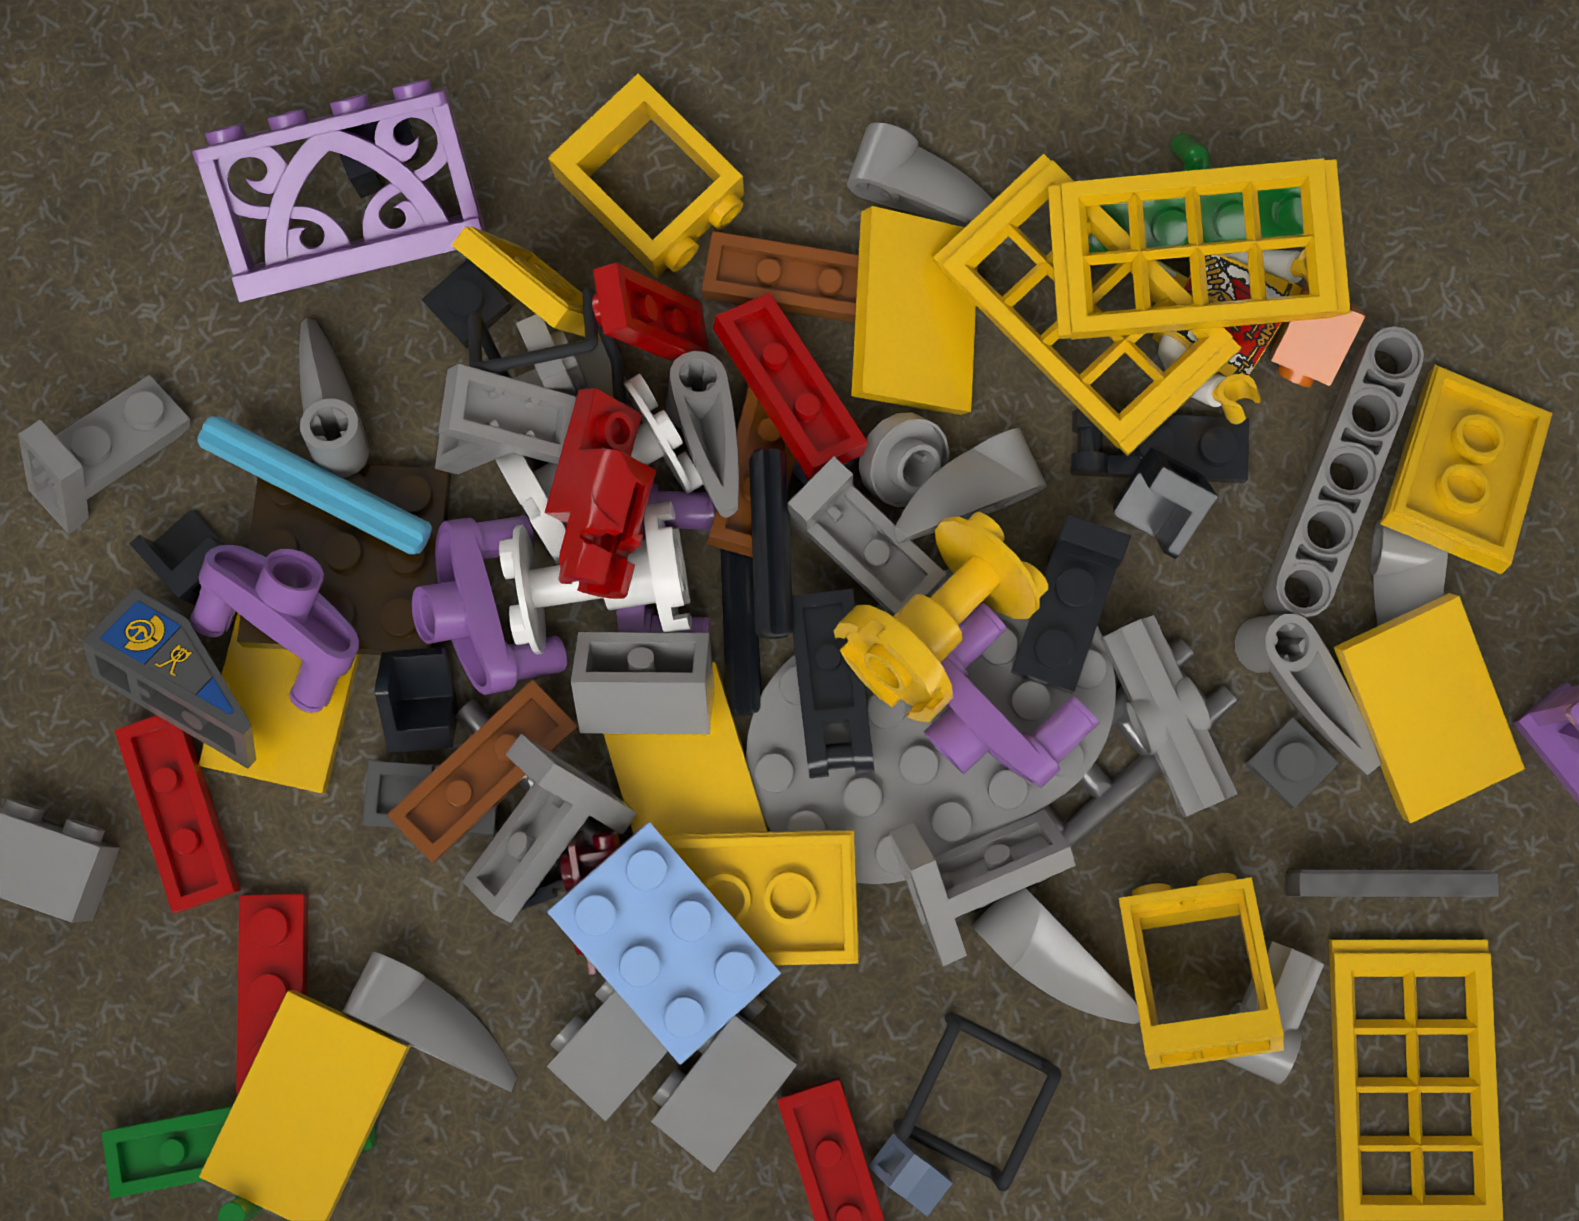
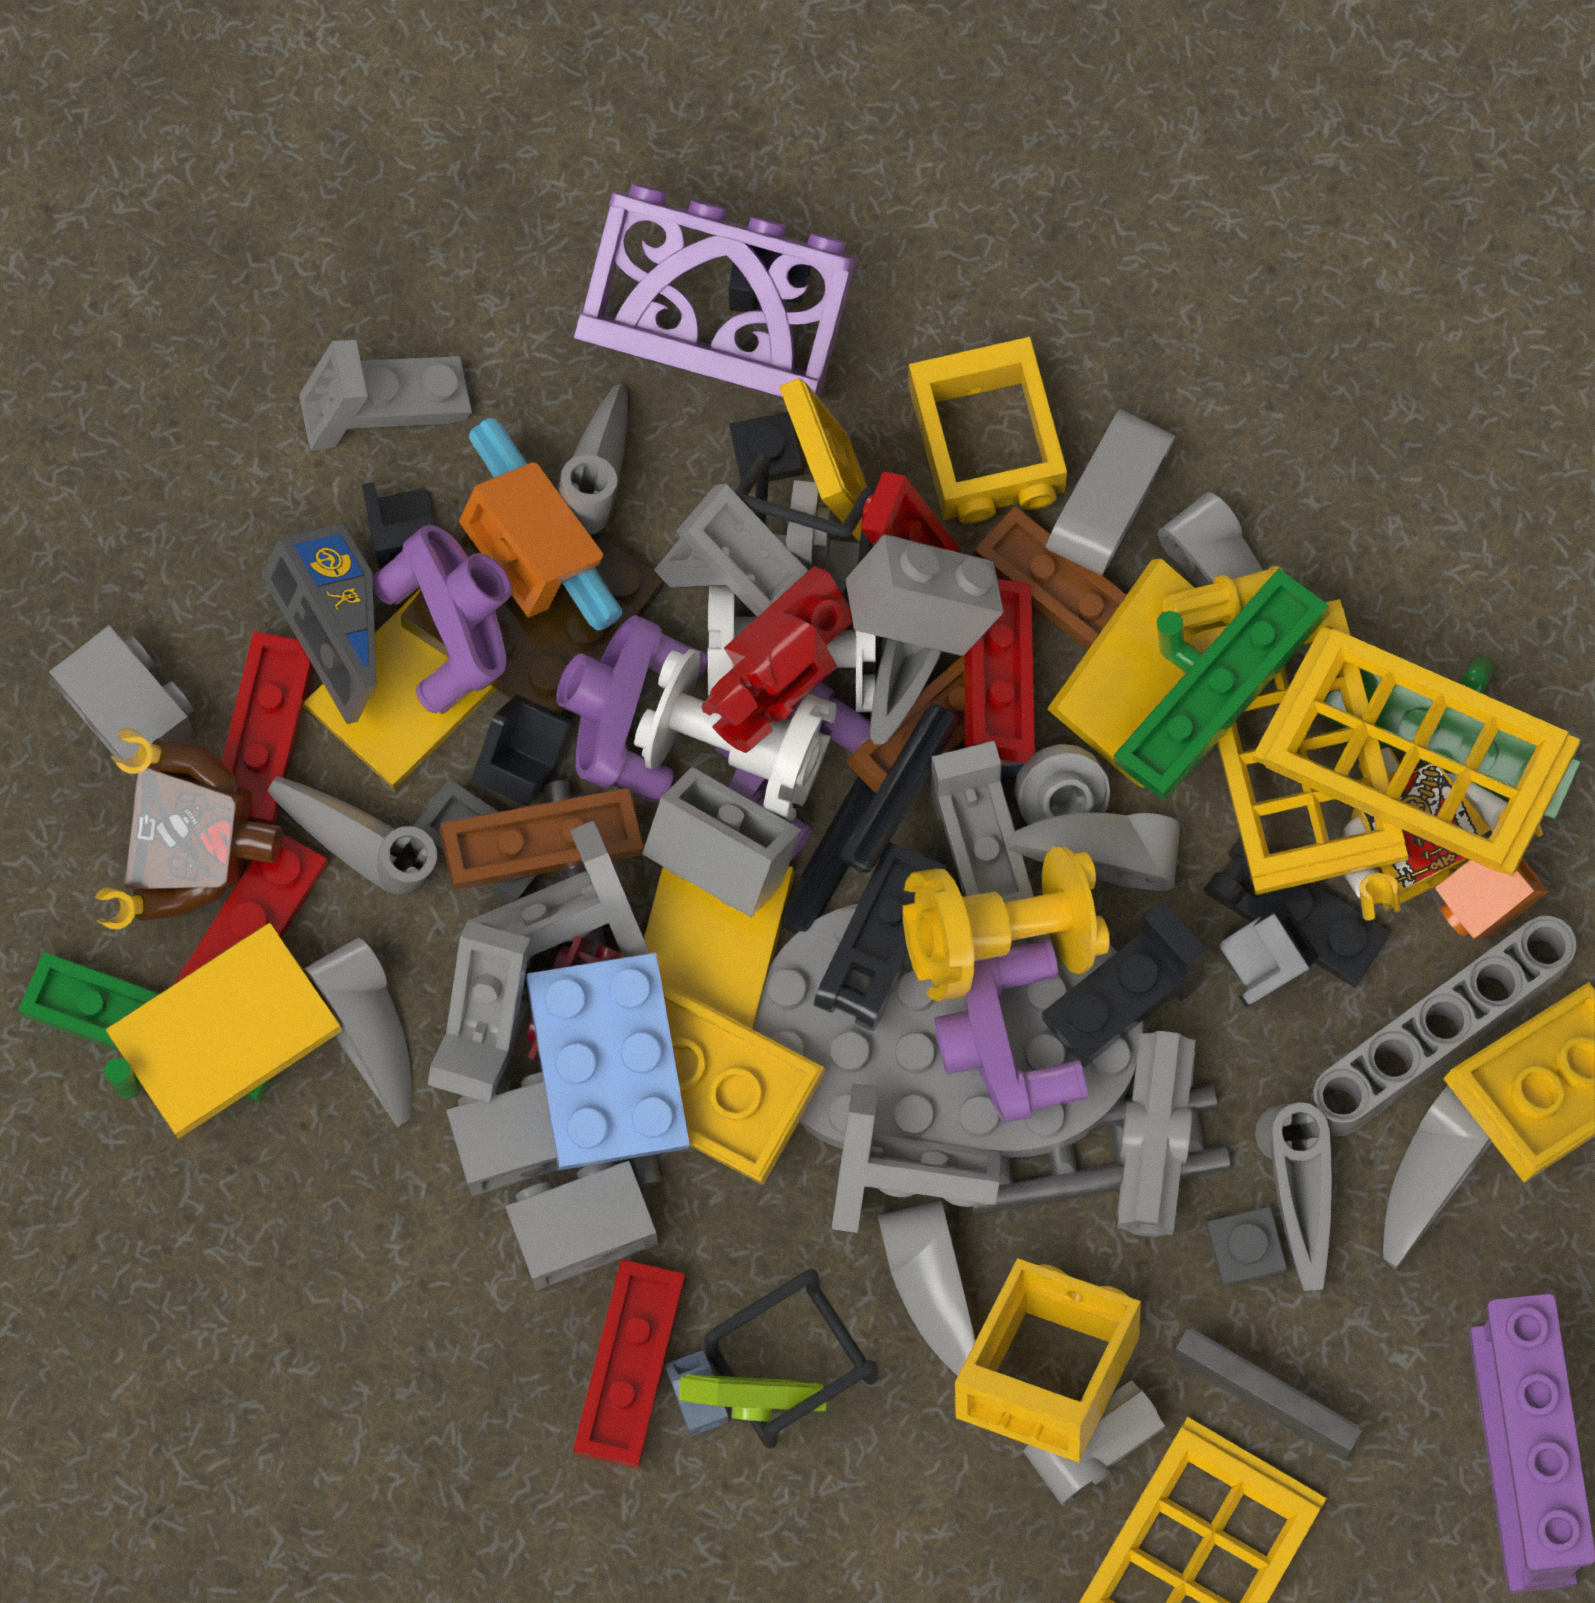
camera: 30 degrees right, 10 degrees down
(161, 953) = (185, 831): none -> reddish brown torso
(306, 505) = (530, 534): none -> orange panel
(312, 858) = (358, 836): none -> light grey piece
(530, 966) = (483, 1012): none -> light grey bracket
(692, 360) = (923, 595): none -> light grey brick
(788, 172) = (1110, 492): none -> light grey beam
(947, 209) = (1218, 600): none -> yellow axle
(964, 1160) = (747, 1396): none -> lime plate
(989, 287) = (1218, 682): none -> green plate
(1430, 707) = (1394, 1265): yellow tile -> none

